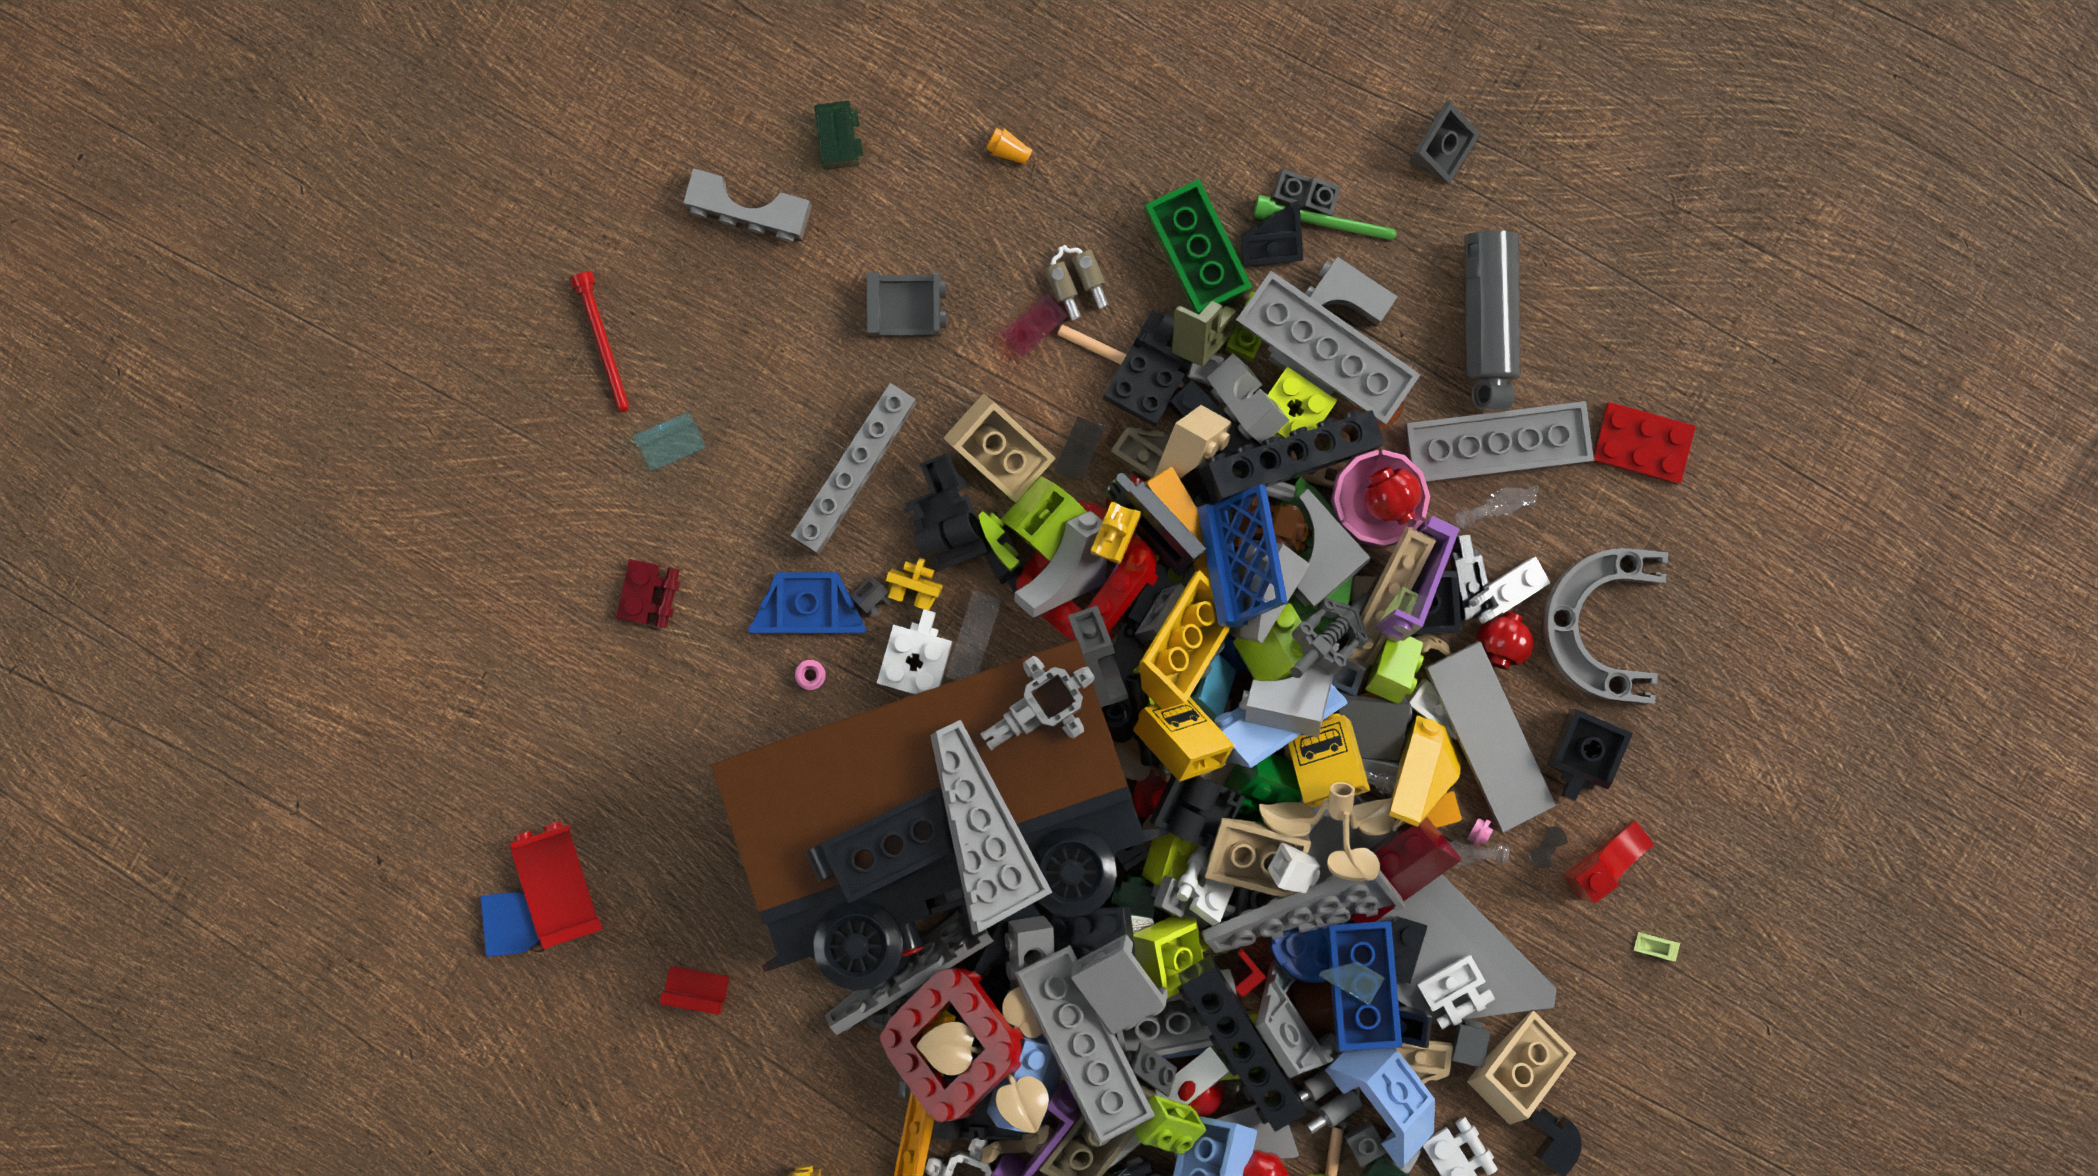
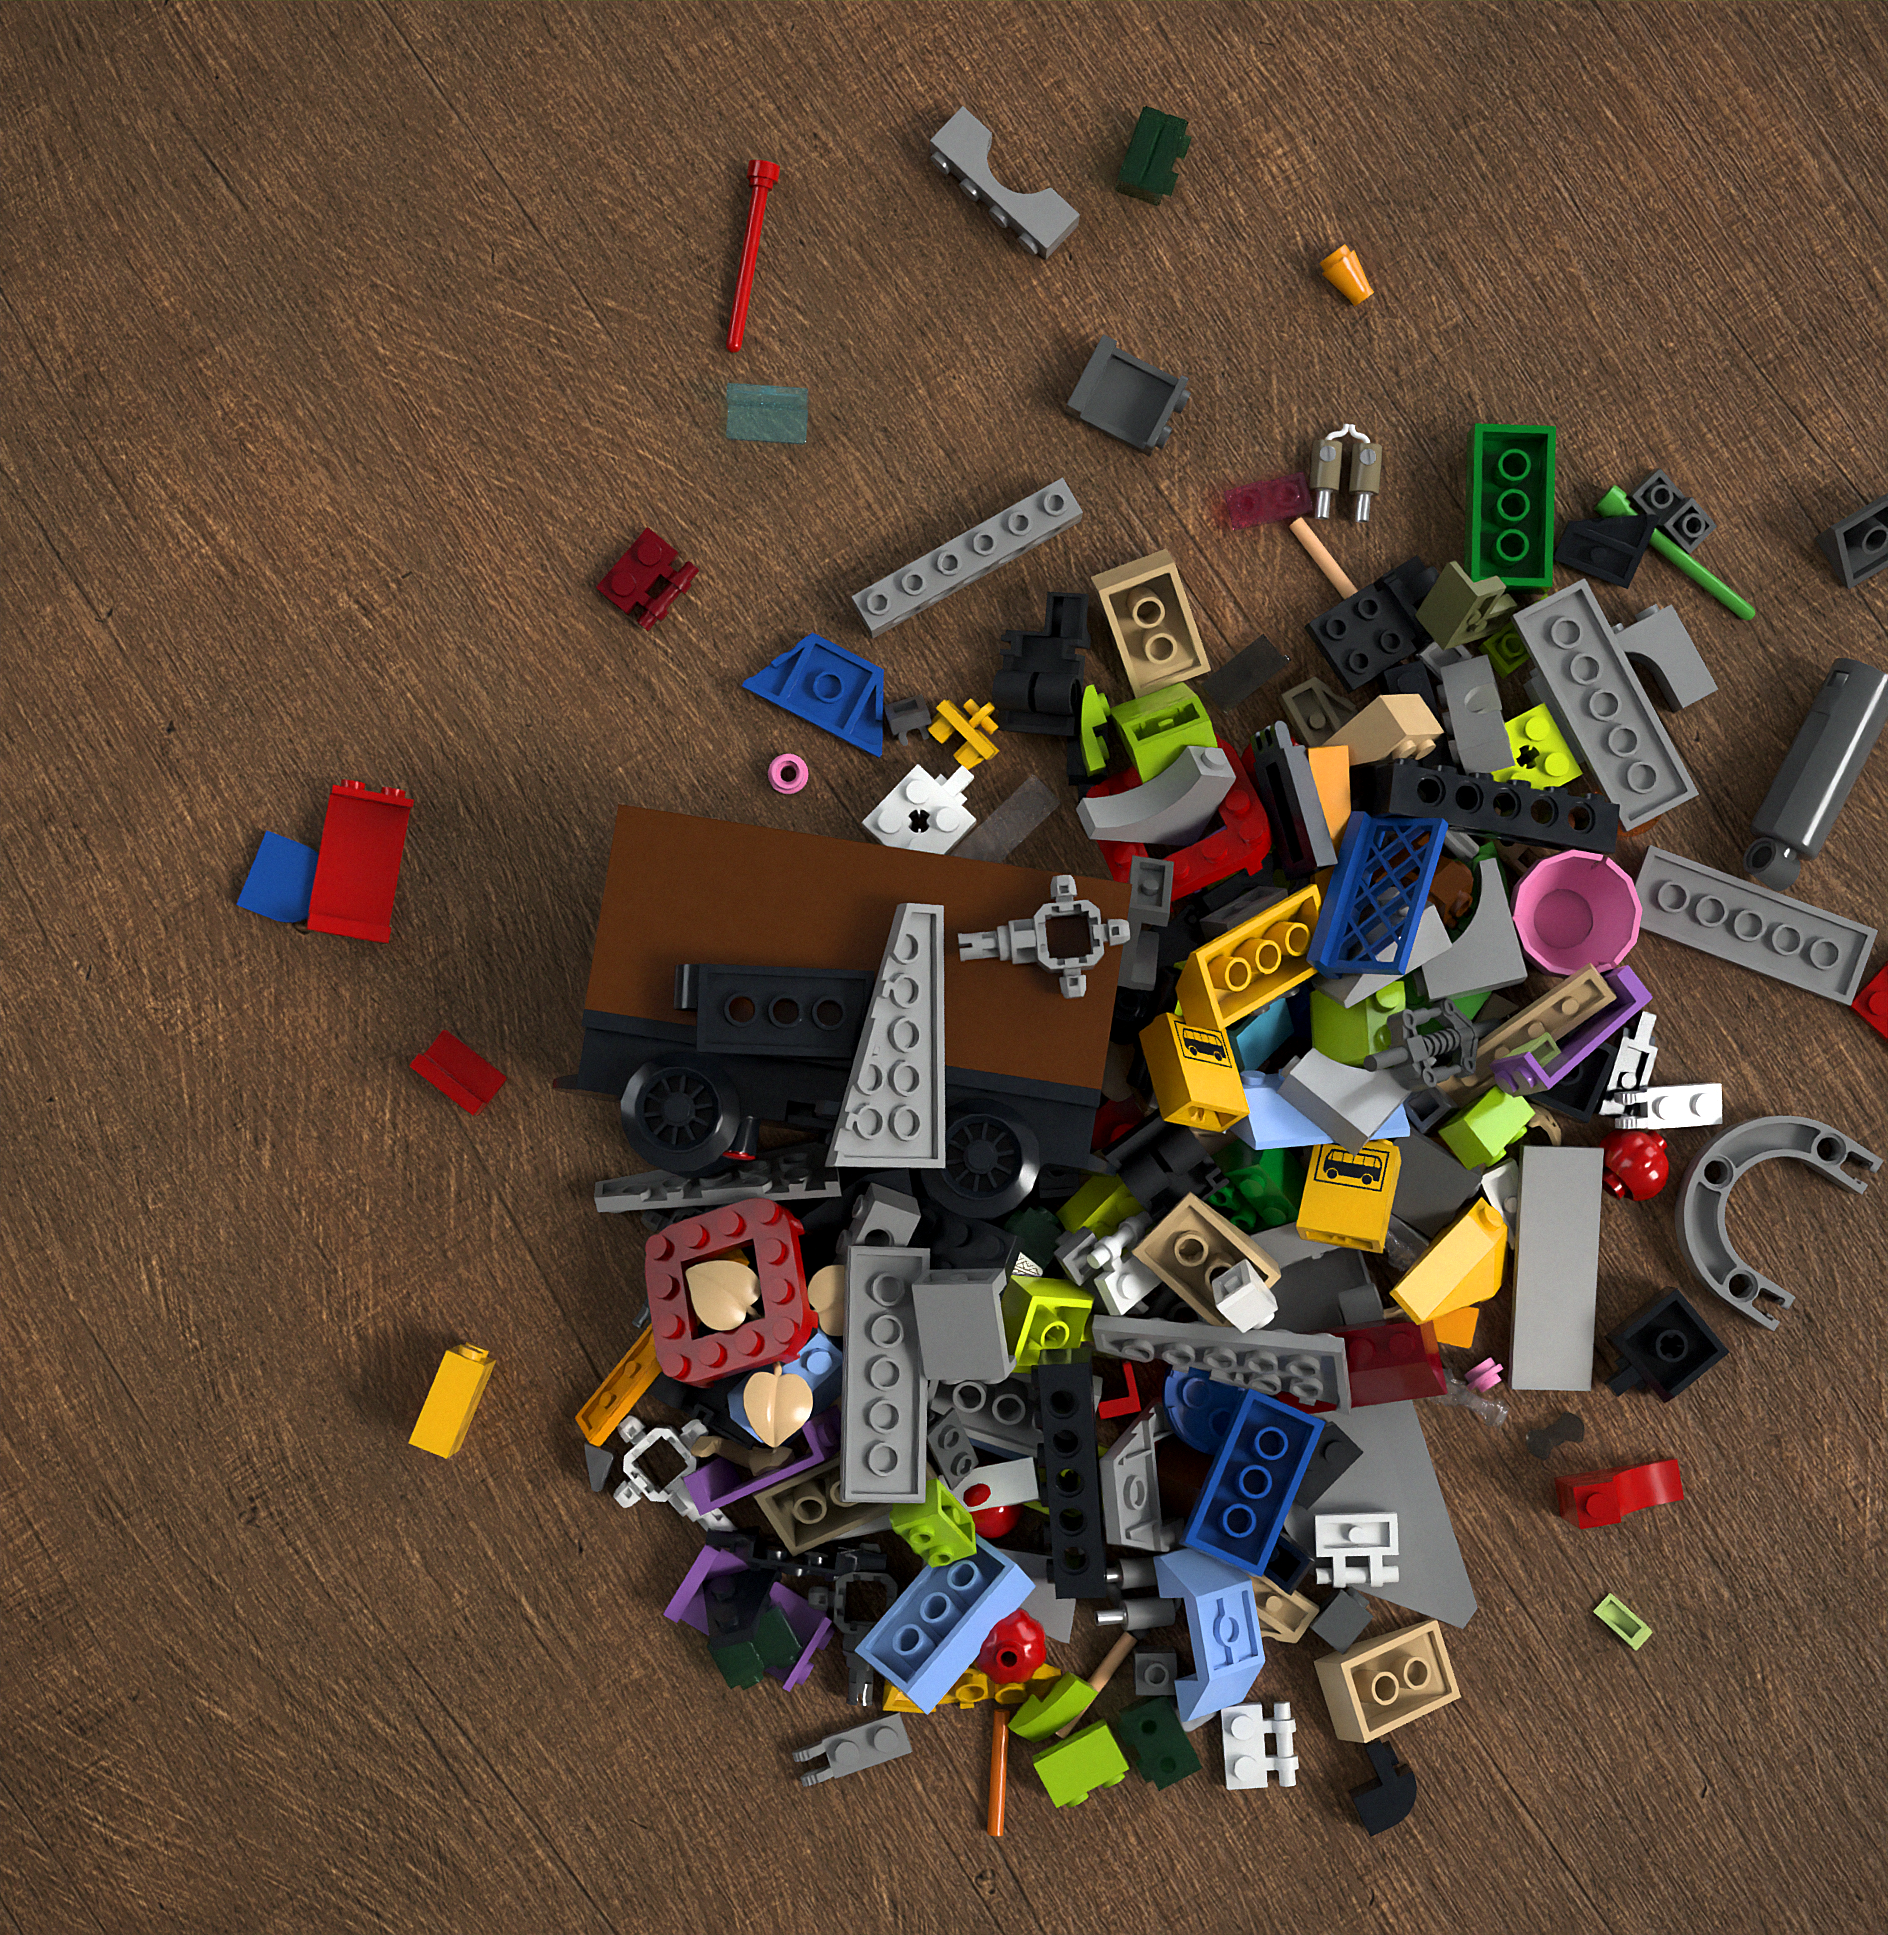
camera: 30 degrees right, 0 degrees up
(1115, 533) = (1239, 788): yellow hips -> none
(1355, 980) = (1246, 1469): clear light blue tile -> none
(1370, 818) = (1362, 1286): tan plant -> none
(1392, 495) = (1593, 916): red plant -> none
(1503, 502) = (1717, 998): clear piece -> none

